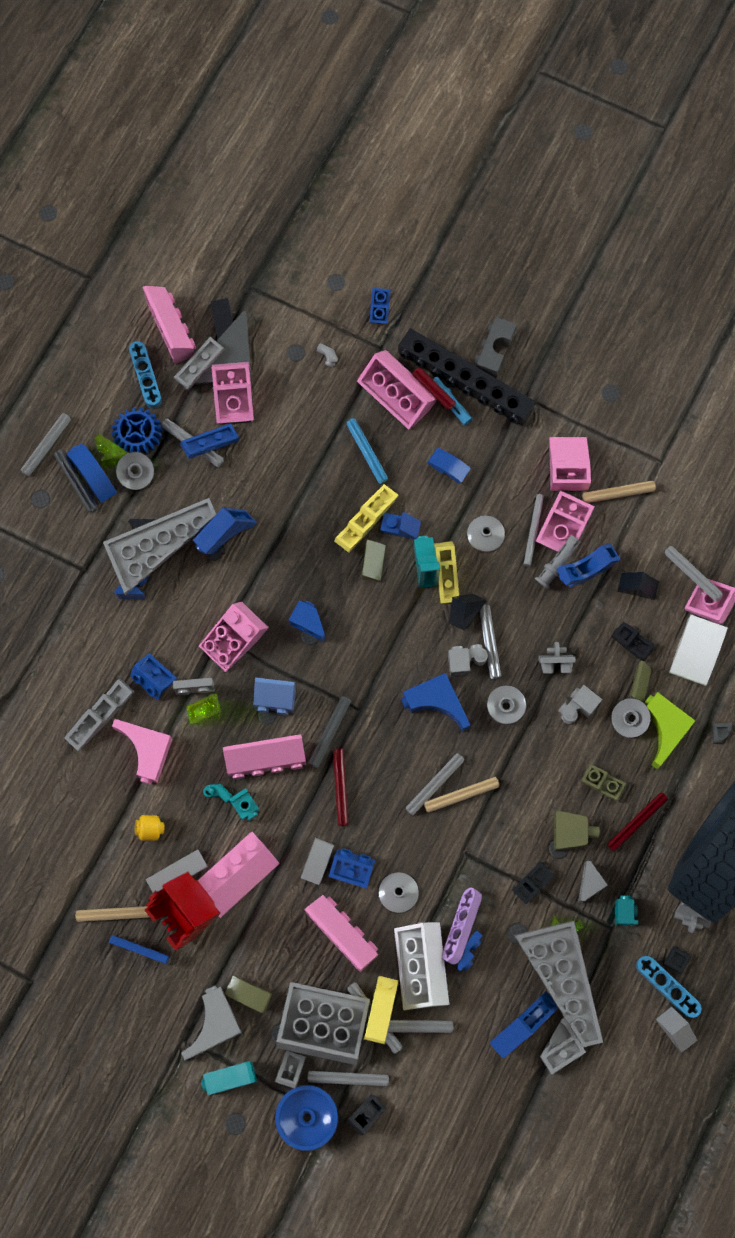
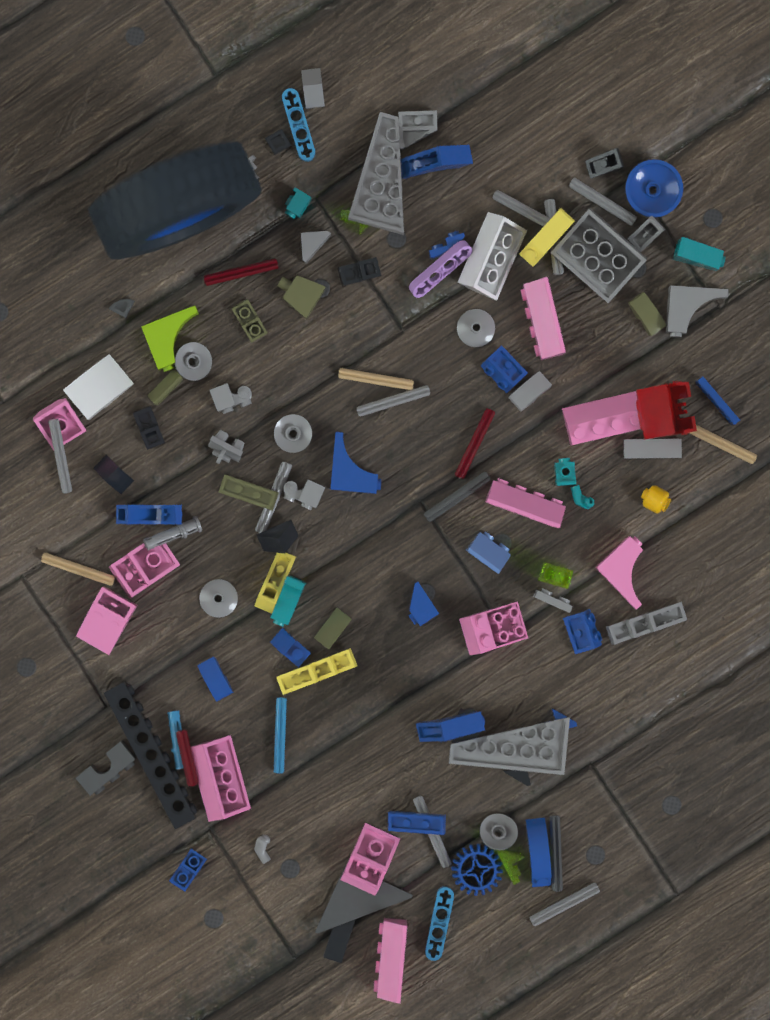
camera: 150 degrees left, 15 degrees up
(199, 363) = (385, 904): light grey tile -> none
(514, 633) = (248, 492): none -> olive tile
(533, 530) = (174, 577): light grey bar -> none

